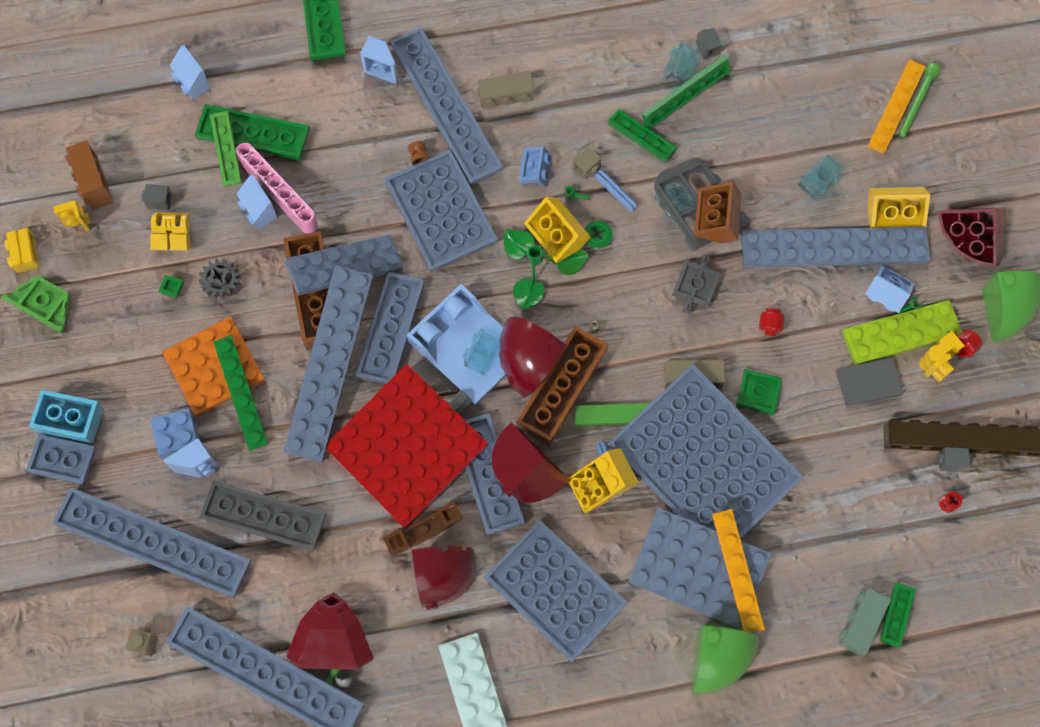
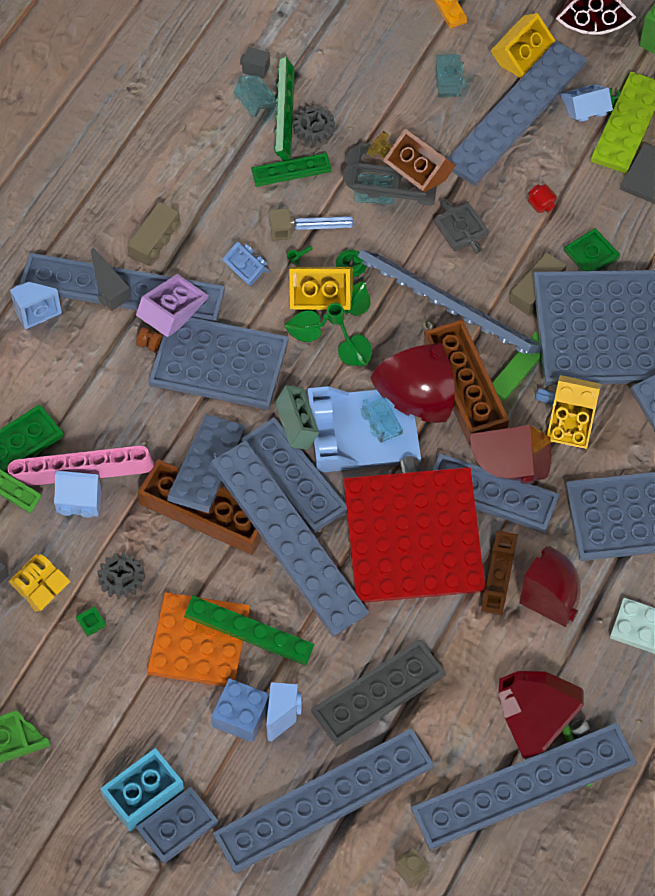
camera: 50 degrees left, 10 degrees down
(432, 295) = (297, 417): none -> sand green brick
(435, 90) = (111, 287): none -> dark grey slope
(453, 144) = (170, 305): none -> lavender slope
(618, 326) = (453, 304): none -> sand blue plate
(693, 118) = (314, 124): none -> dark grey gear
(709, 175) = (380, 145): none -> clear yellow tile

